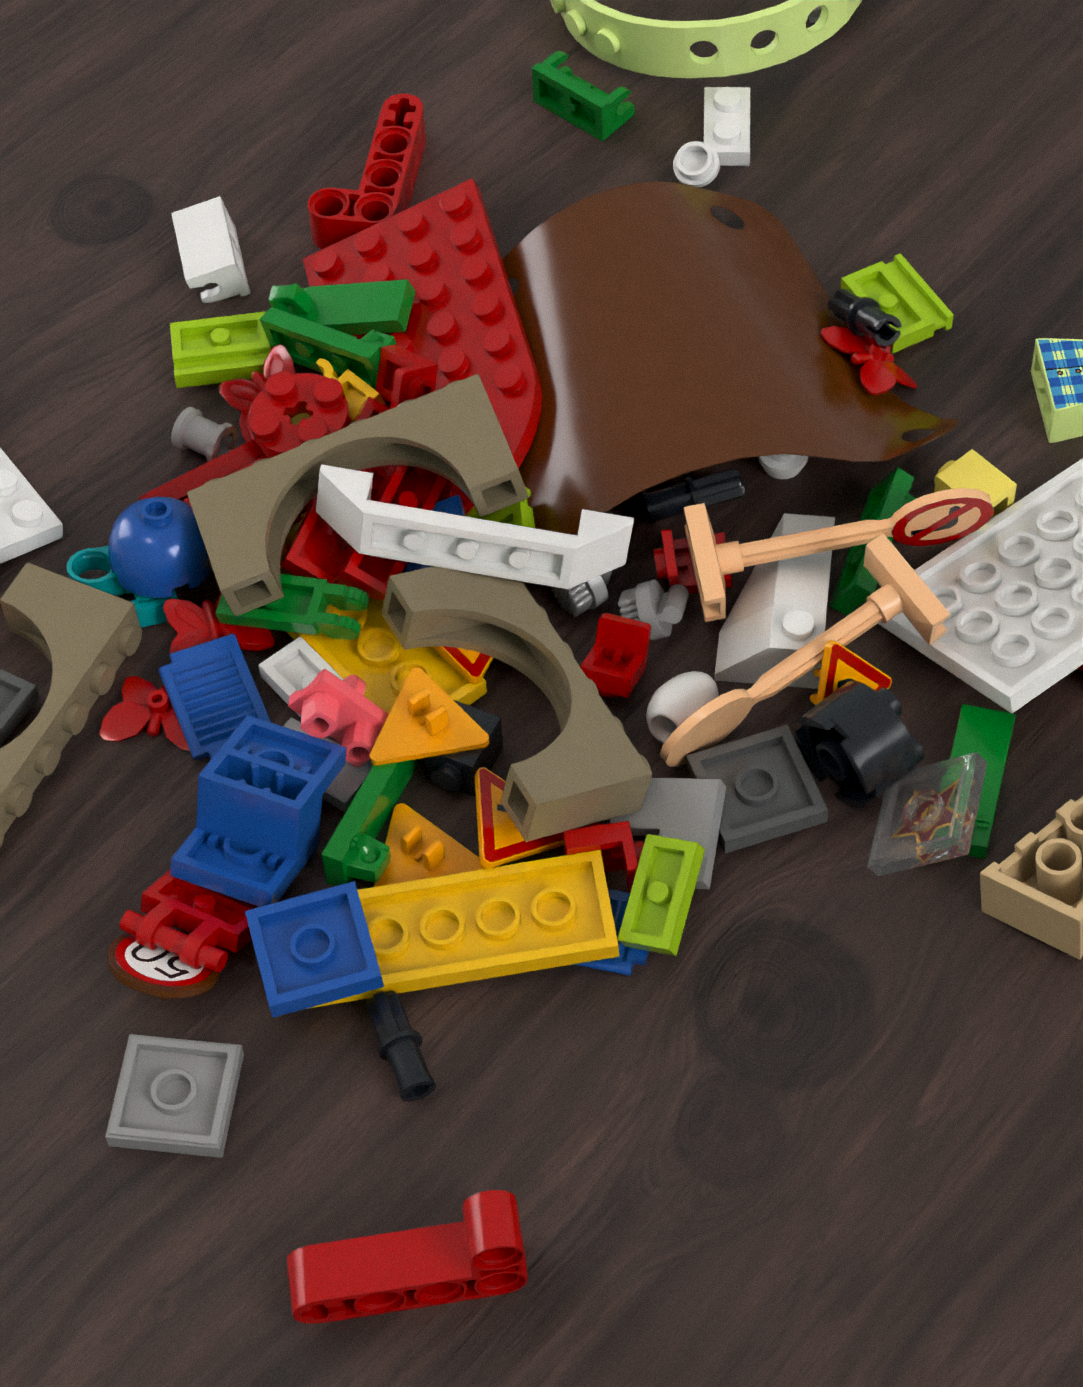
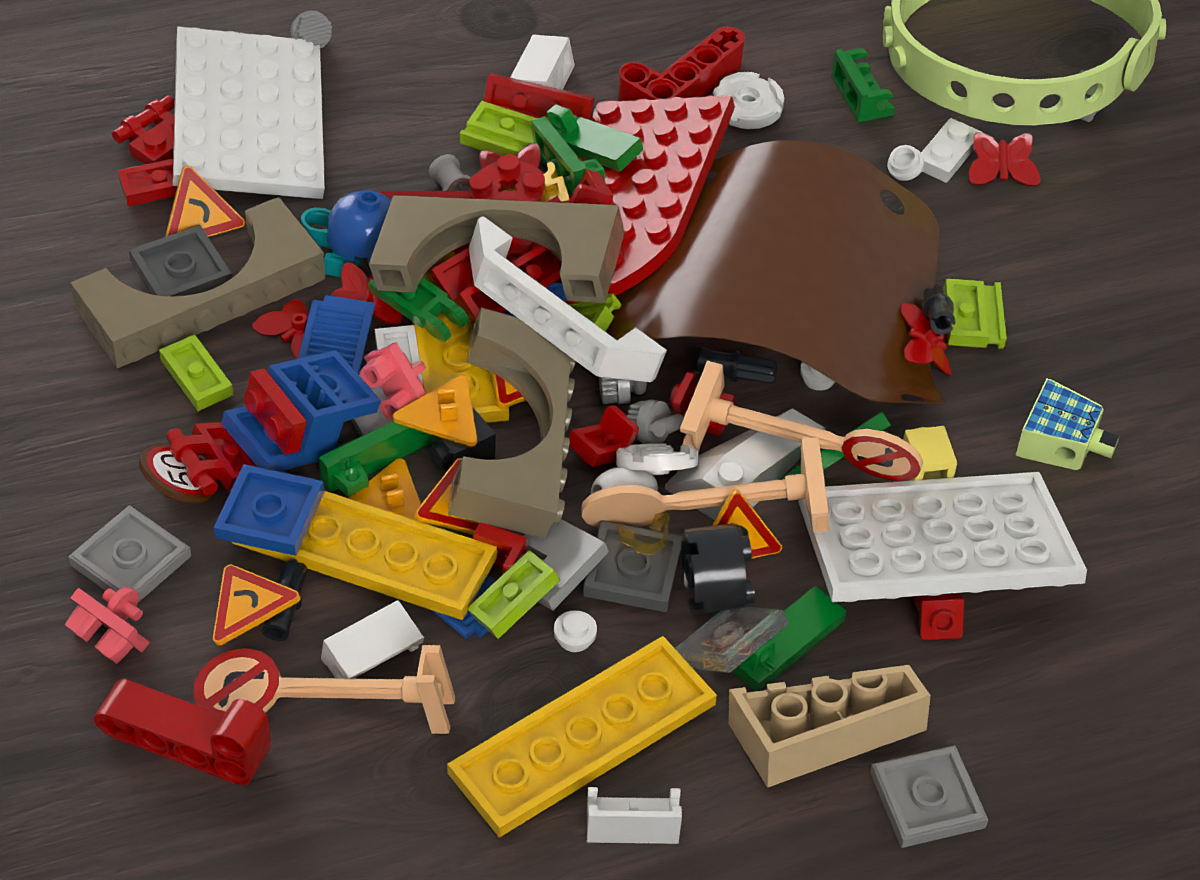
camera: 25 degrees right, 5 degrees down
(84, 829) = (196, 372): none -> lime plate
(232, 290) = (534, 98): none -> red hinge
(237, 827) = (274, 411): none -> red plate
(245, 1195) = (120, 635): none -> coral hips
(366, 1073) = (247, 602): none -> piece
(431, 1169) = (256, 678): none -> light nougat piece
(460, 160) = (755, 99): none -> white plate
(543, 1044) = (370, 642): none -> white hinge
(693, 652) = (656, 458): none -> white plate
(727, 757) = (627, 536): none -> clear yellow piece
(747, 898) = (575, 630): none -> white plate
(796, 108) = (1003, 158): none -> red piece
(846, 1017) = (580, 735): none -> yellow plate
(971, 1075) = (633, 819): none -> white hinge

